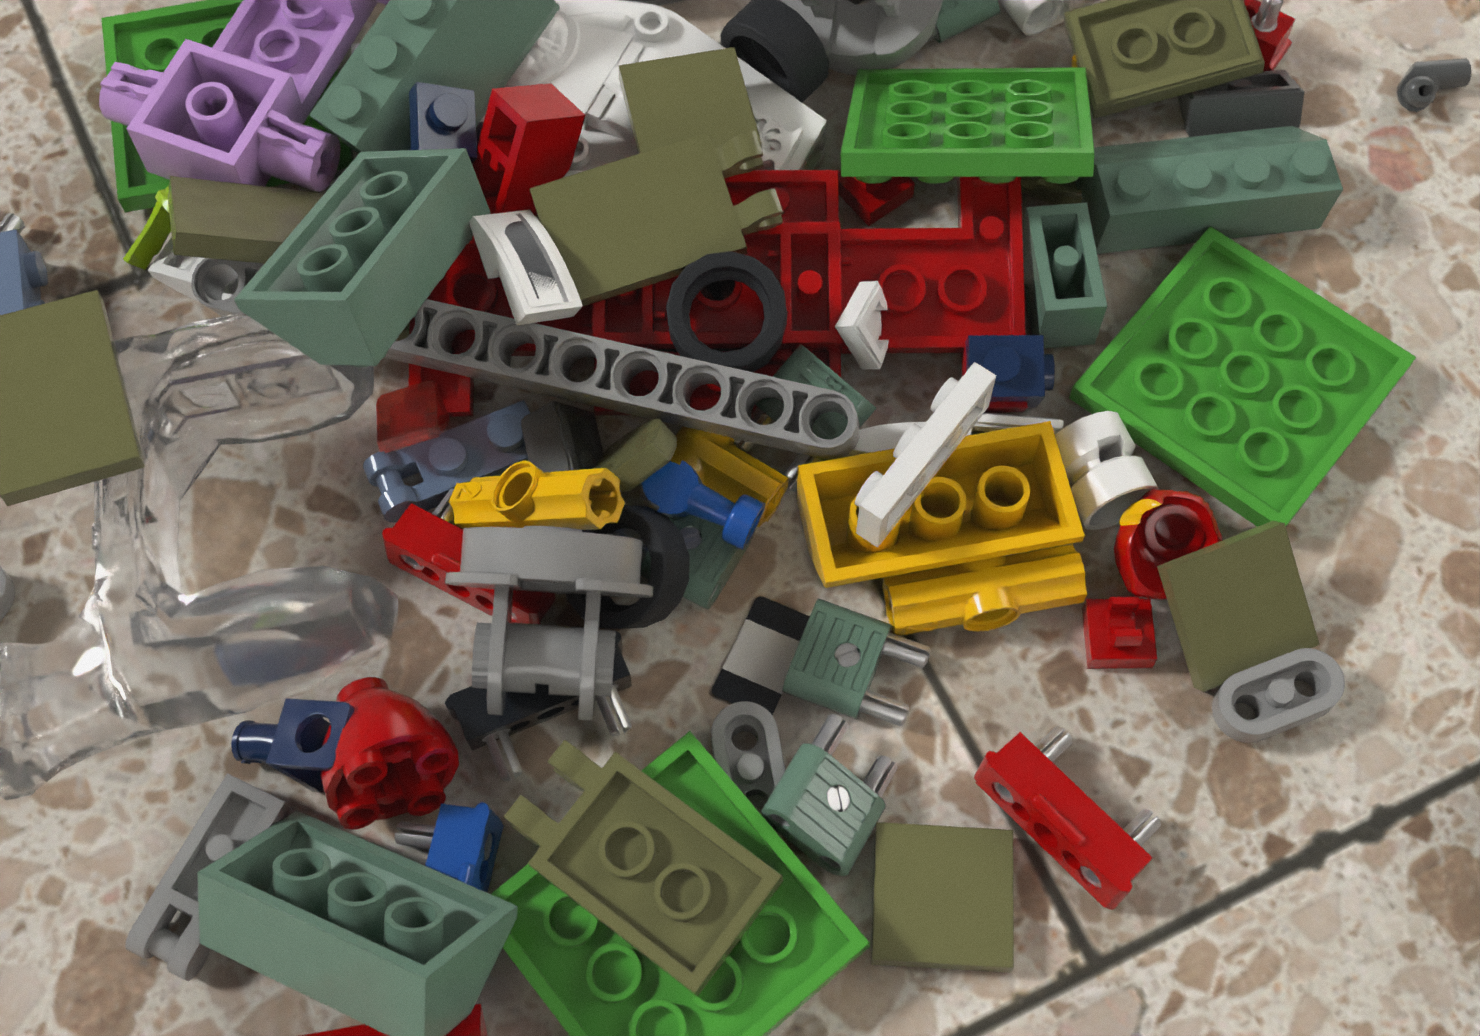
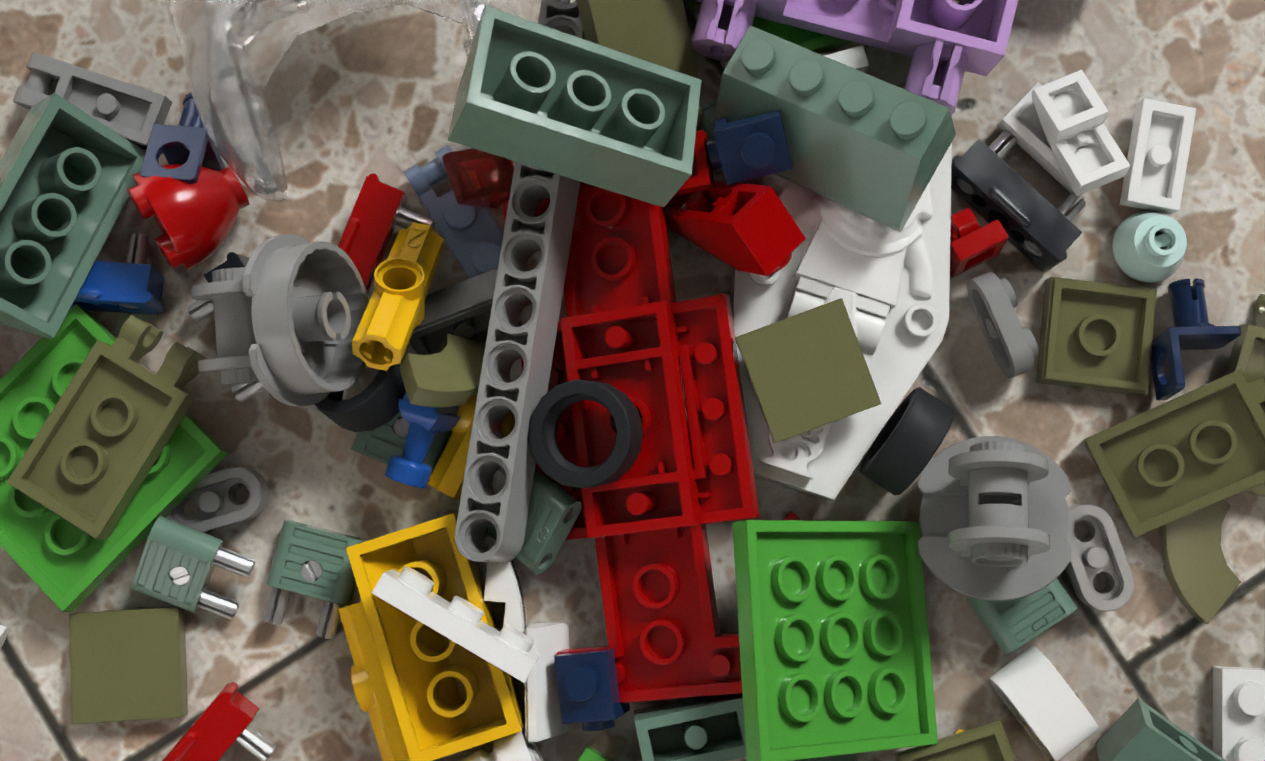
camera: 80 degrees right, 20 degrees up
(528, 264) = (600, 249): white slope -> none
(653, 213) = (670, 353): olive tile -> none
(761, 655) = (321, 500): sticker -> none
(862, 325) = (610, 554): white tile -> none

